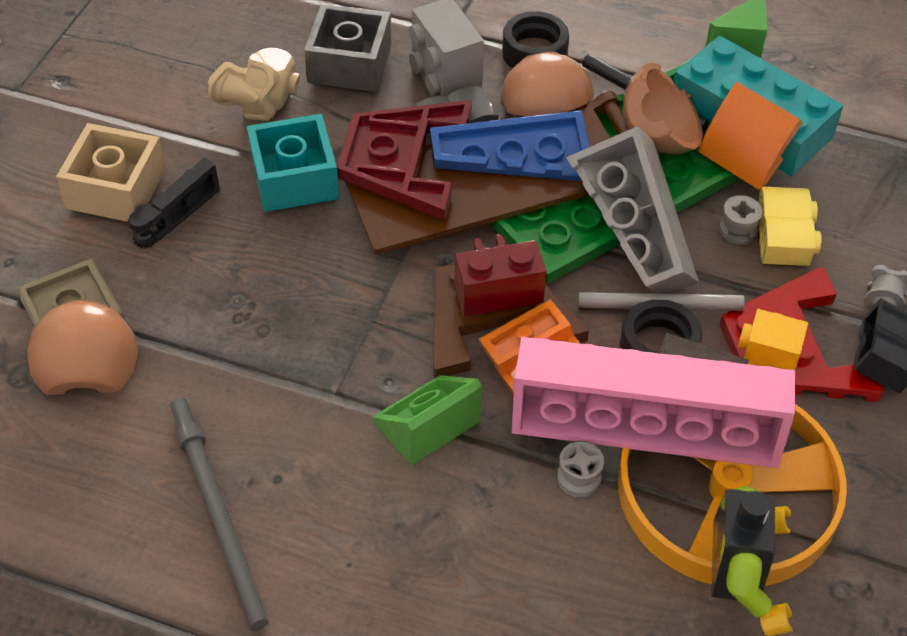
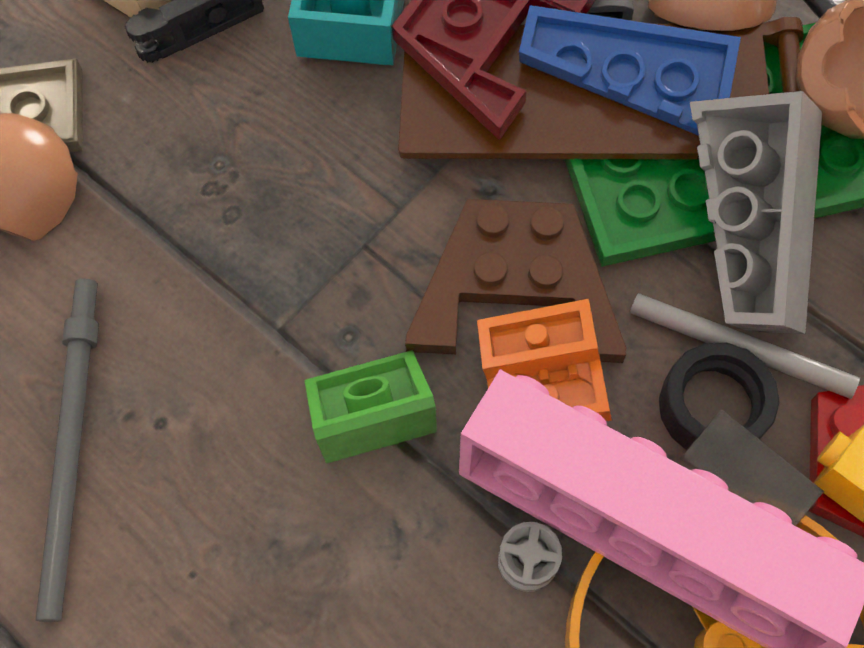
camera: 25 degrees right, 15 degrees up
(499, 277) = (531, 246): dark red brick -> none

